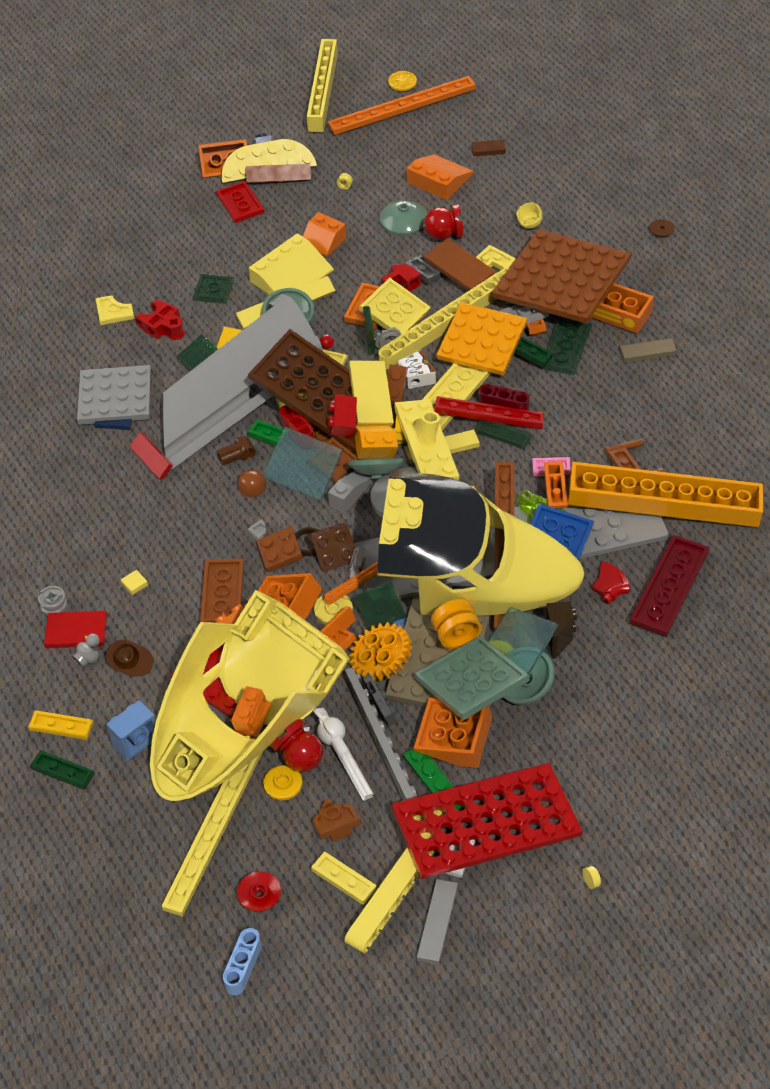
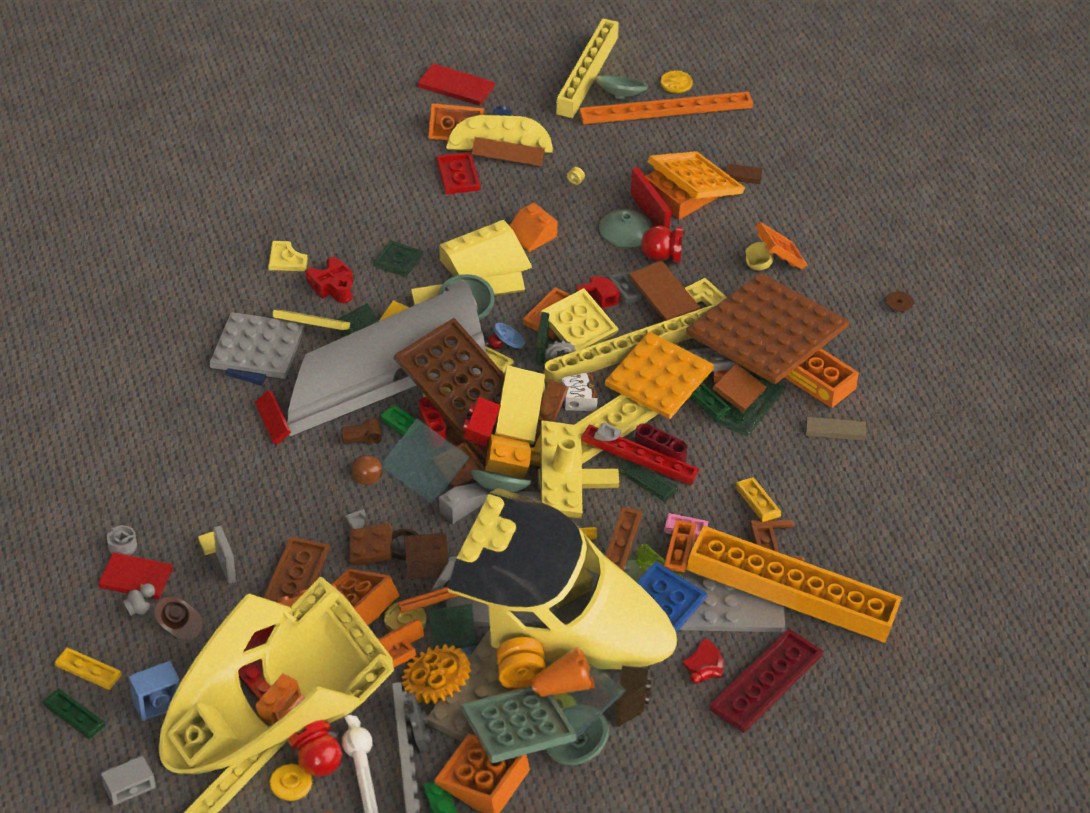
camera: 10 degrees right, 5 degrees down
(134, 818) = (128, 780): none -> light grey brick
(152, 590) = (224, 554): none -> light grey tile
(159, 360) = (310, 319): none -> light yellow tile
(210, 124) = (456, 84): none -> red tile
(337, 334) = (509, 335): none -> medium blue wheel
(357, 95) = (621, 86): none -> sand green dish
(418, 187) = (649, 199): none -> red tile
(450, 157) = (695, 175): none -> light orange plate
(456, 400) = (607, 433): none -> light grey tile
(499, 625) = (564, 675): none -> orange cone
(546, 202) = (780, 245): none -> orange plate
(554, 333) = (739, 387): none -> dark orange tile
(605, 428) = (758, 499): none -> yellow tile

